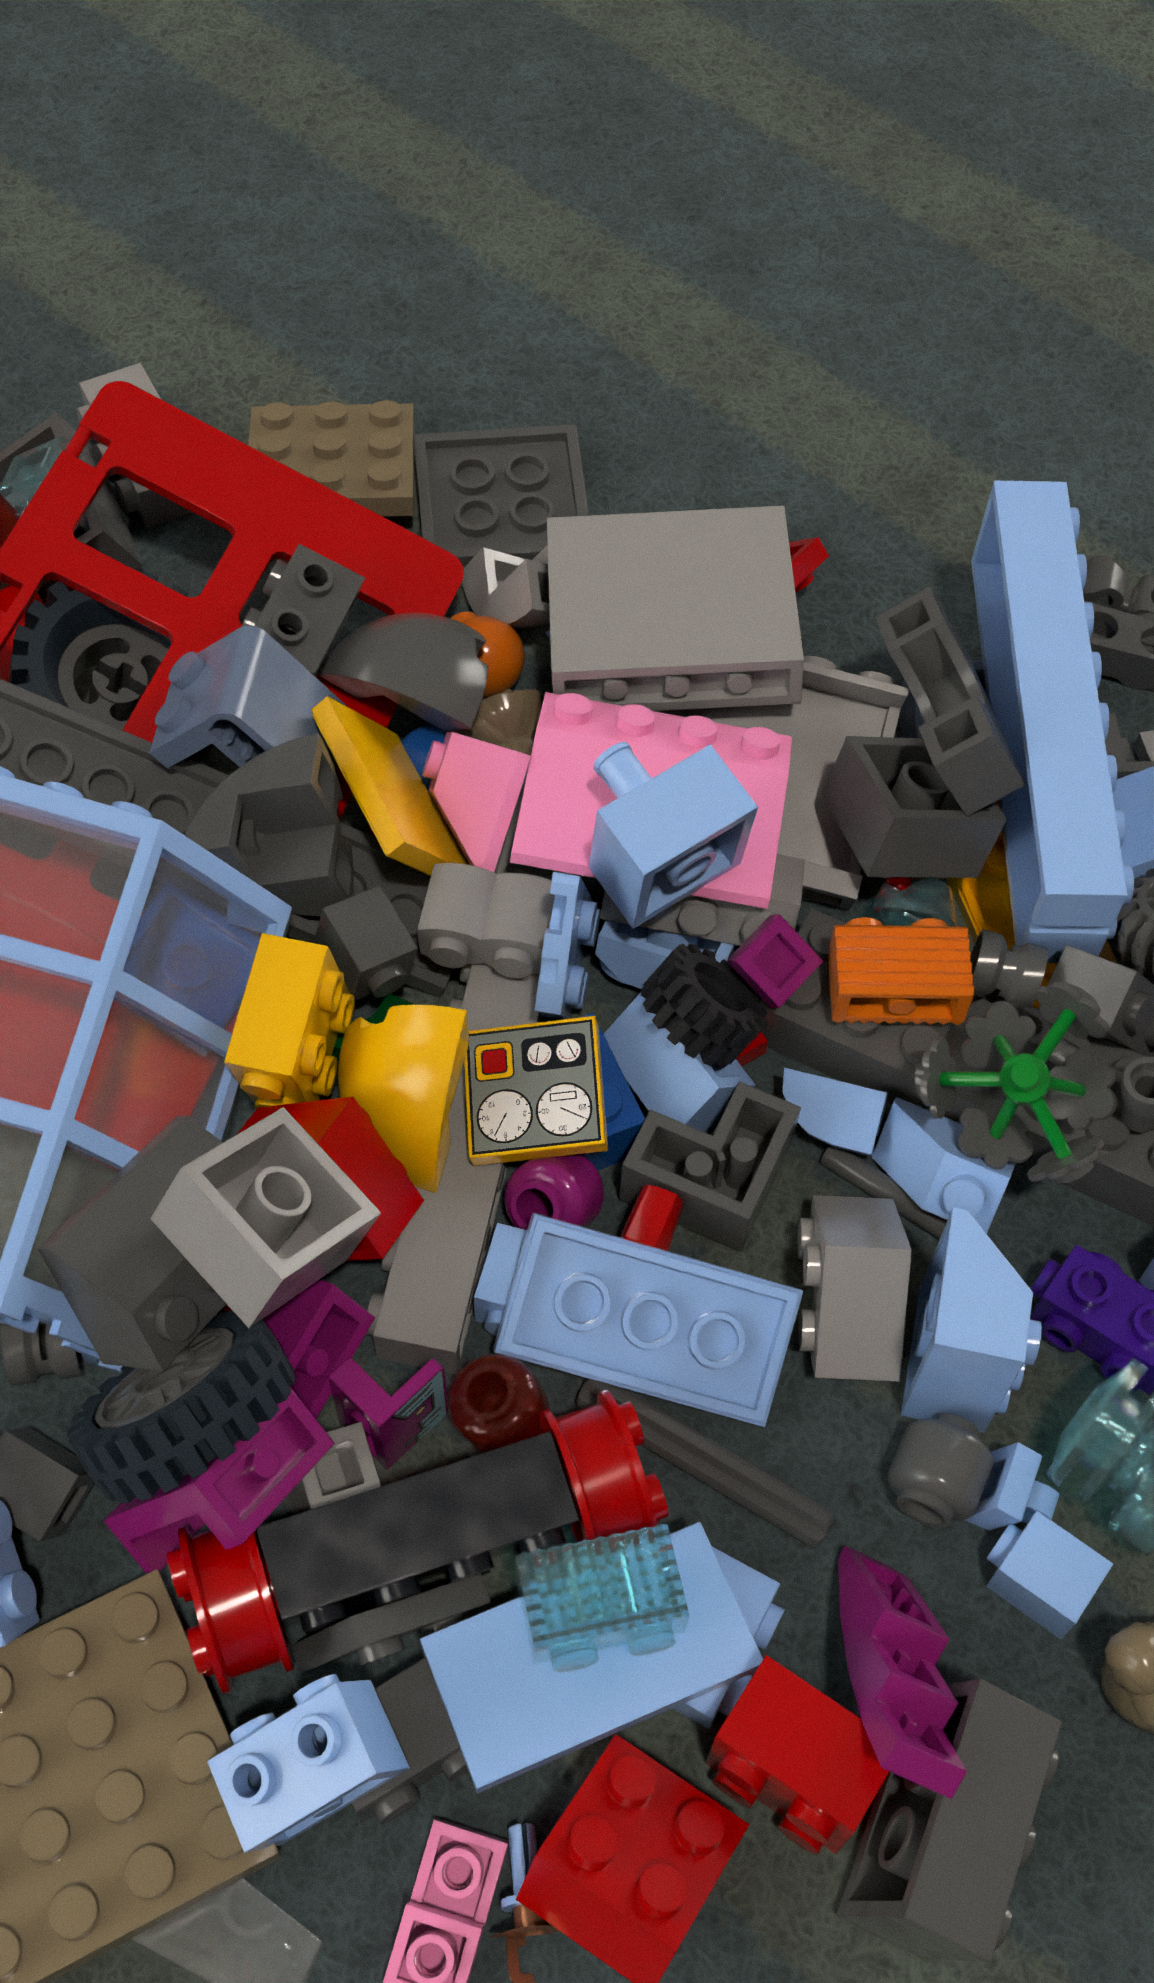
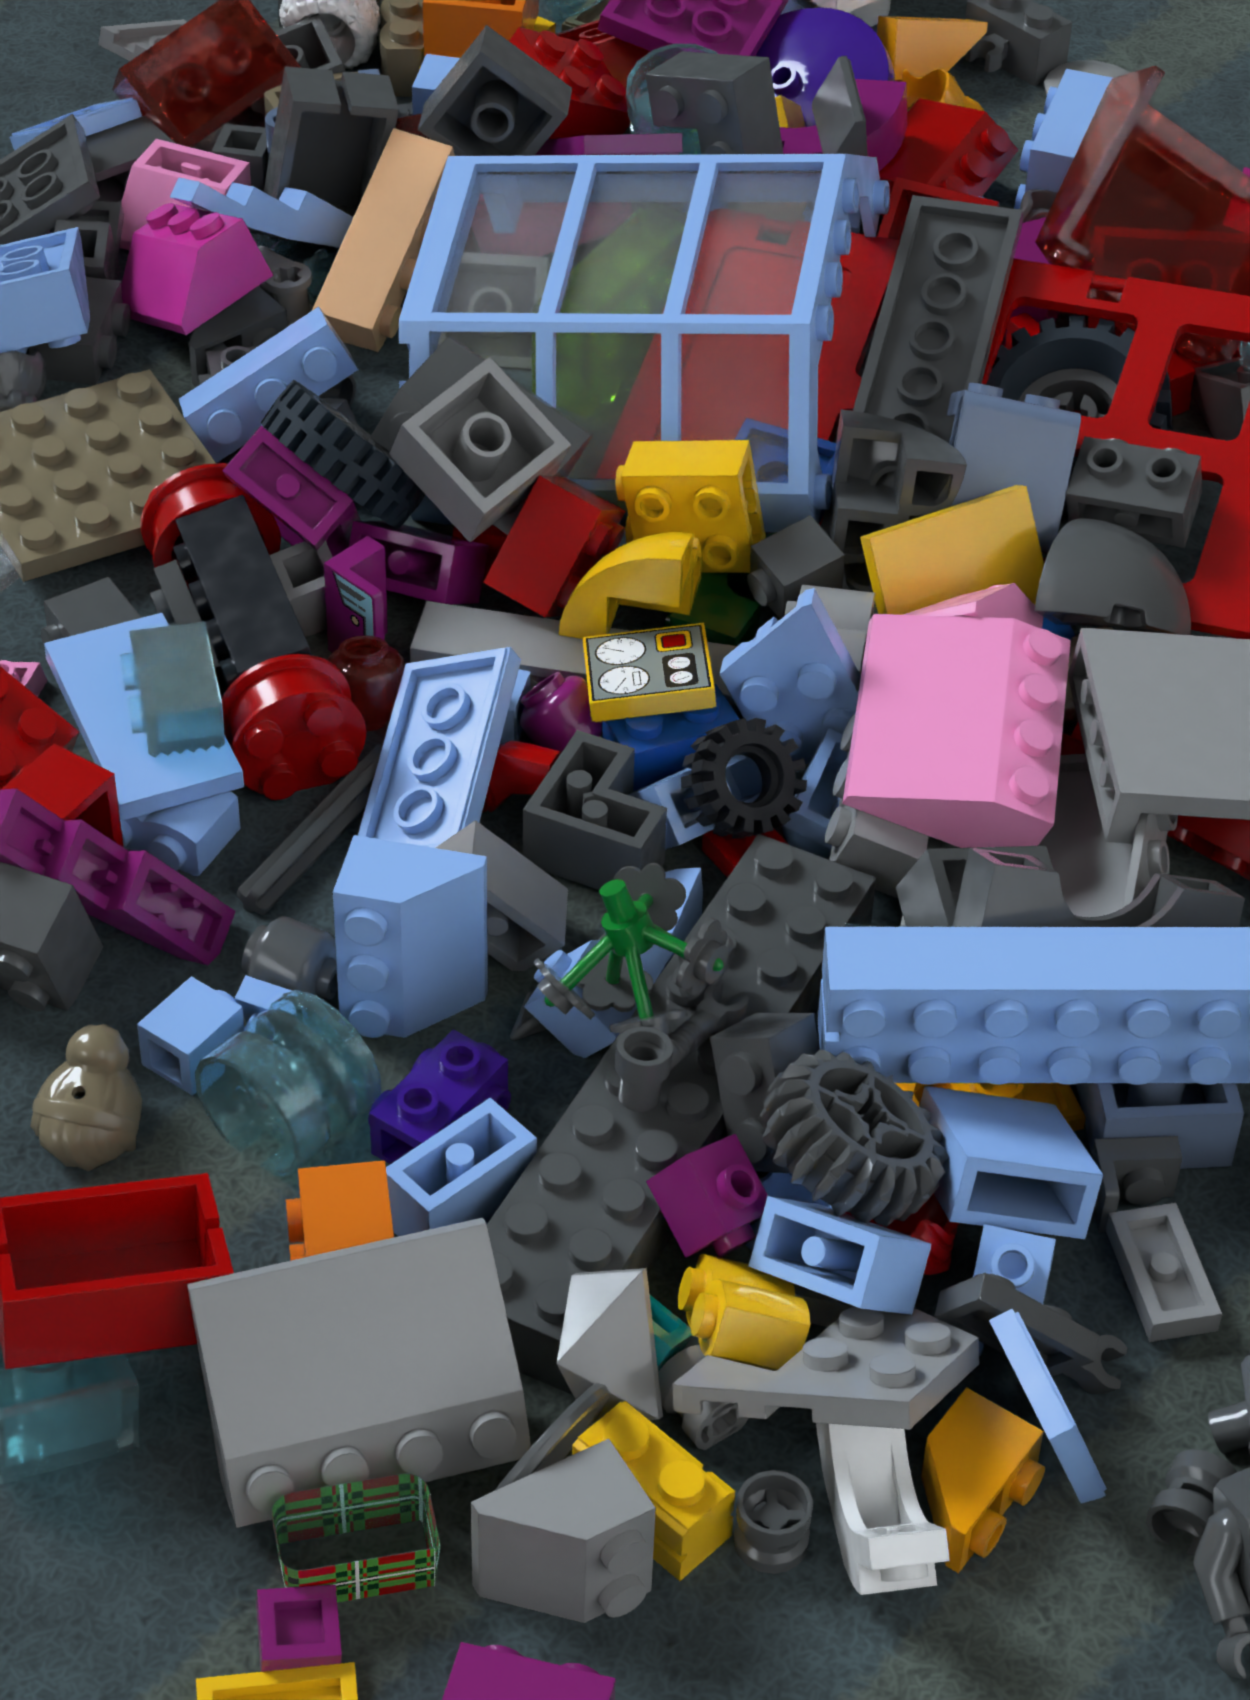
camera: 90 degrees right, 15 degrees down
(306, 1762) = (76, 556): light blue brick -> none
(666, 830) = (873, 668): light blue brick -> none
(774, 961) = (789, 816): magenta tile -> none
(900, 972) = (780, 898): orange brick -> none
(1012, 972) = (784, 982): dark grey wheel -> none

